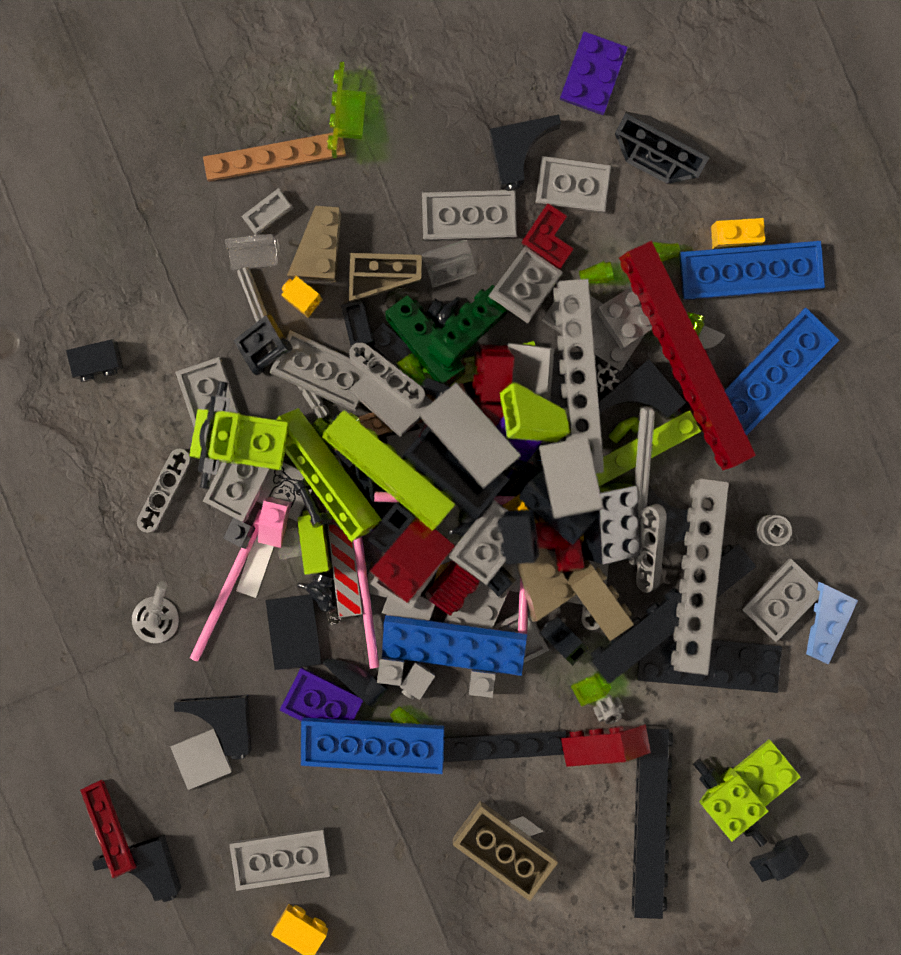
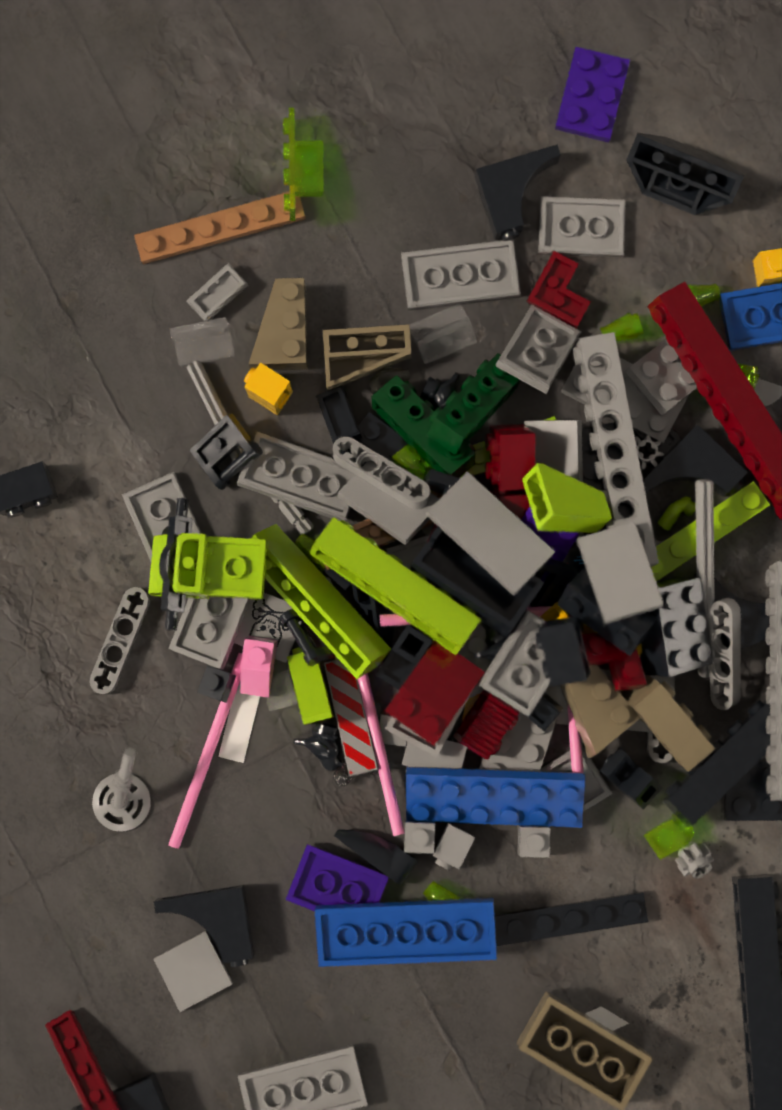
camera: 10 degrees left, 5 degrees down
(293, 631) = (294, 800): black tile -> none
(605, 746) = (695, 905): dark red wedge -> none

